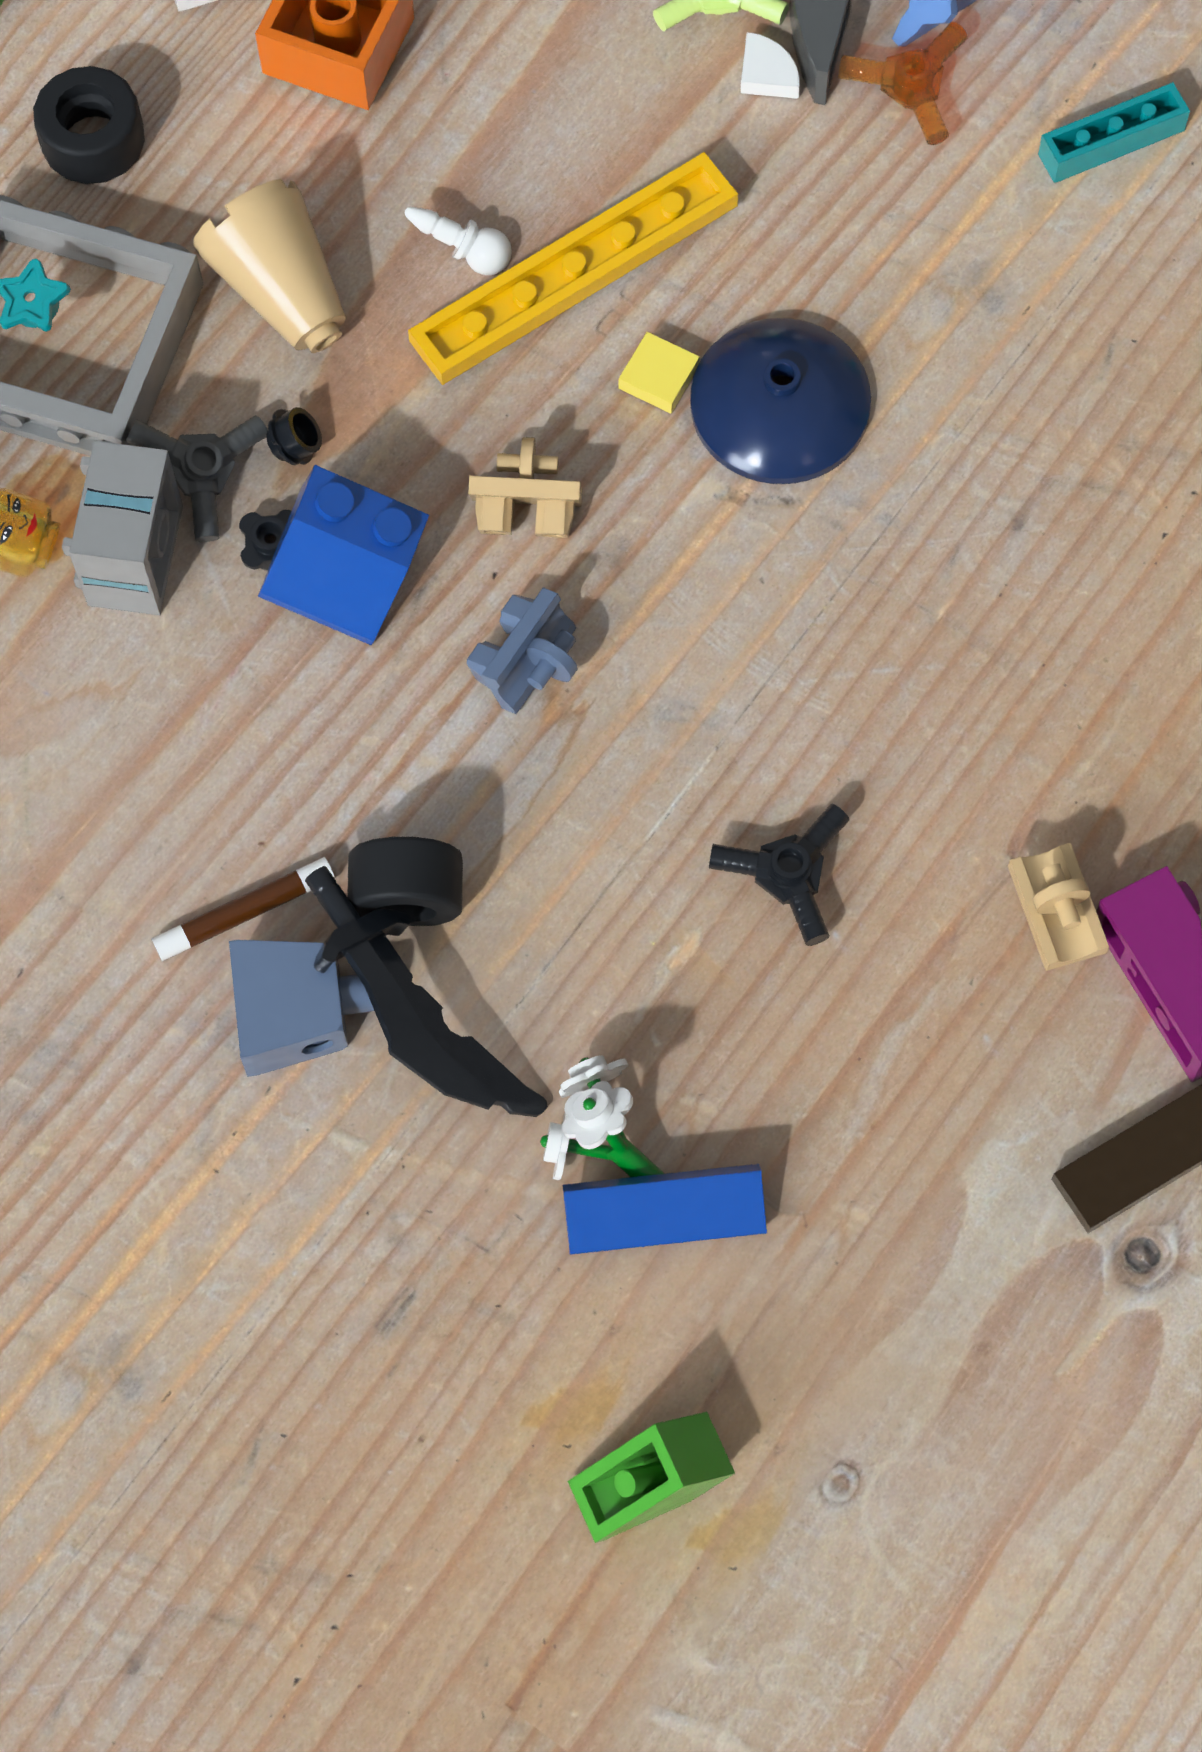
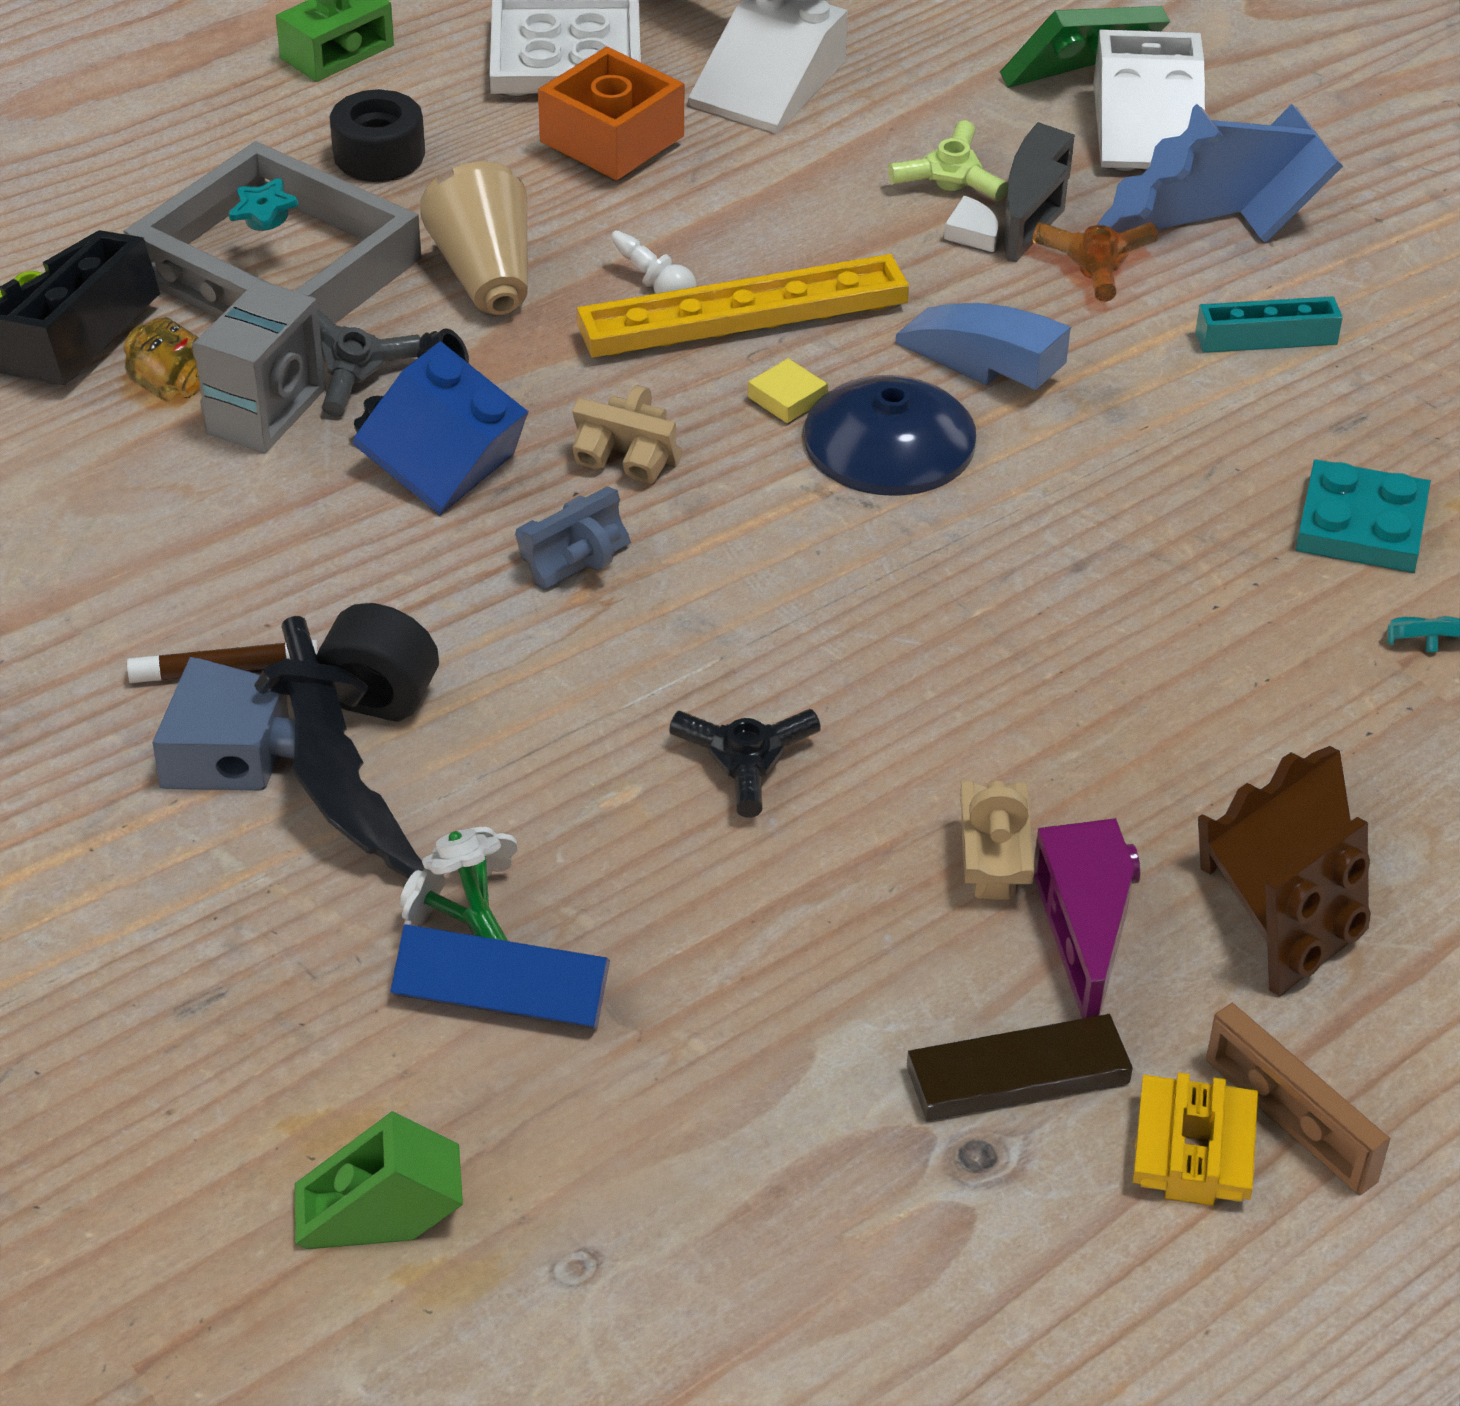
camera: 15 degrees right, 25 degrees down
(839, 249) = (989, 341): none -> medium blue slope

